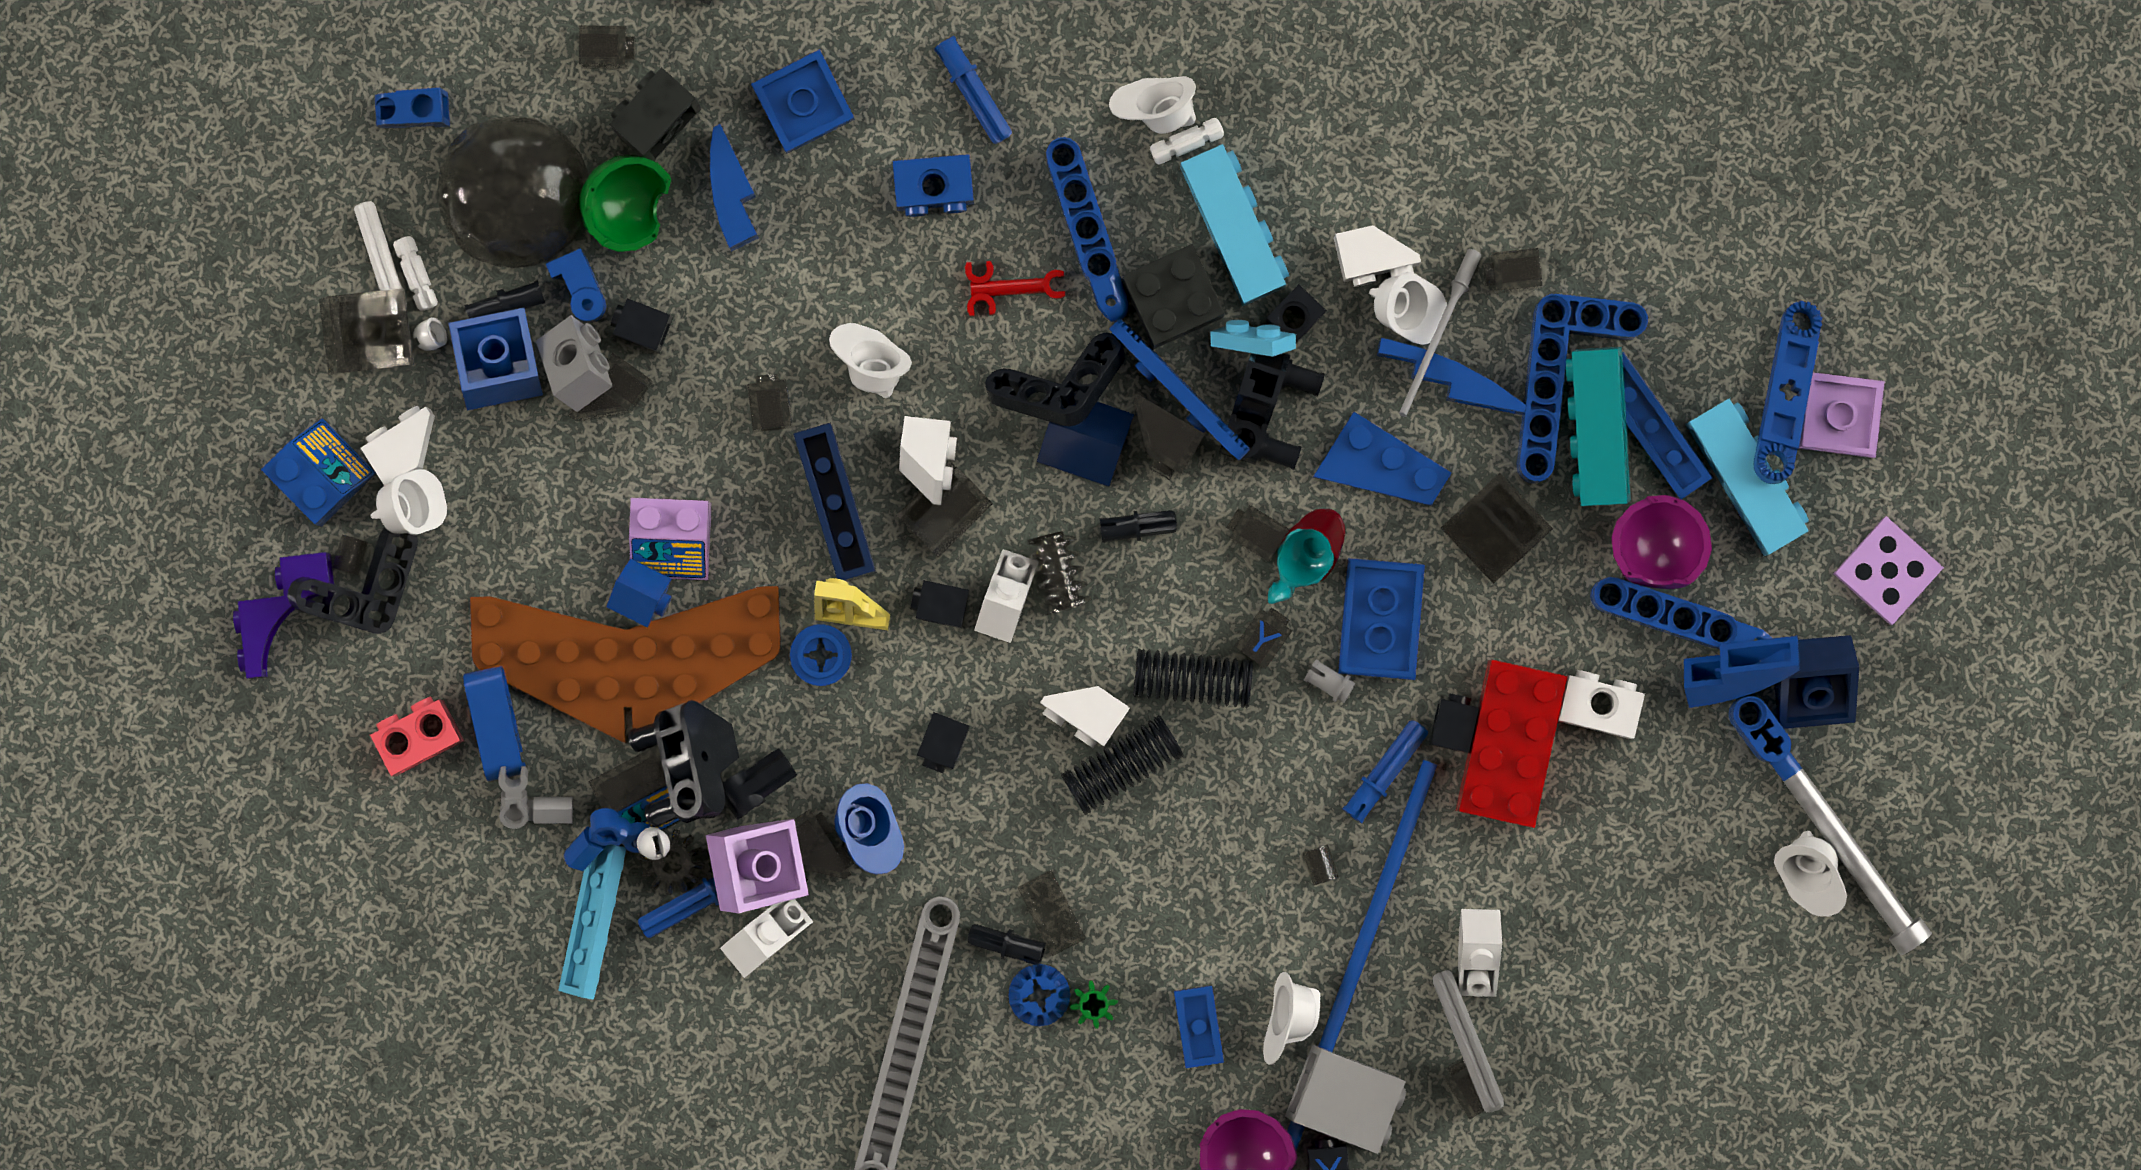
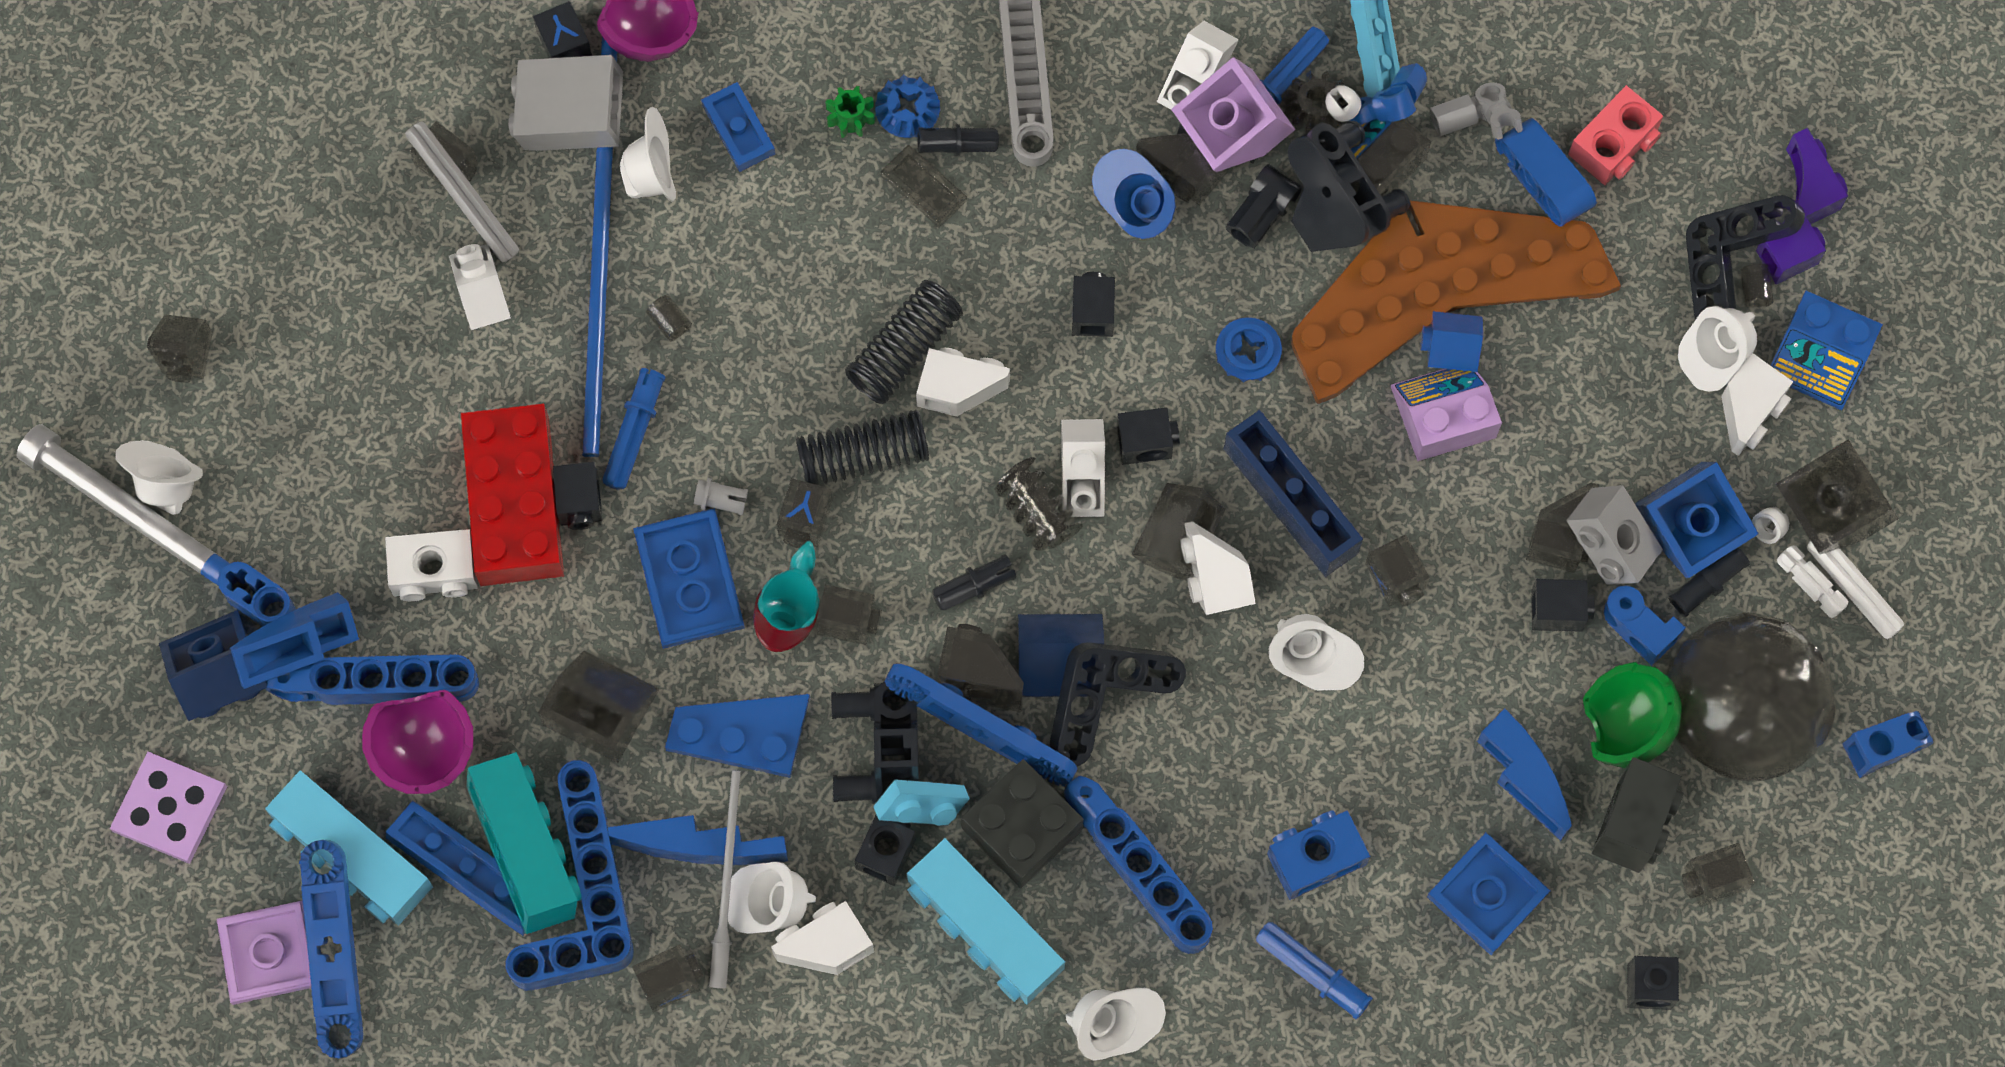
camera: 160 degrees right, 15 degrees down
(846, 604) = (1250, 397): light yellow wing -> none
(983, 288) = (1224, 768): red bar -> none
(1187, 141) = (1066, 997): white axle -> none
(1760, 983) = (181, 347): none -> clear smoke slope

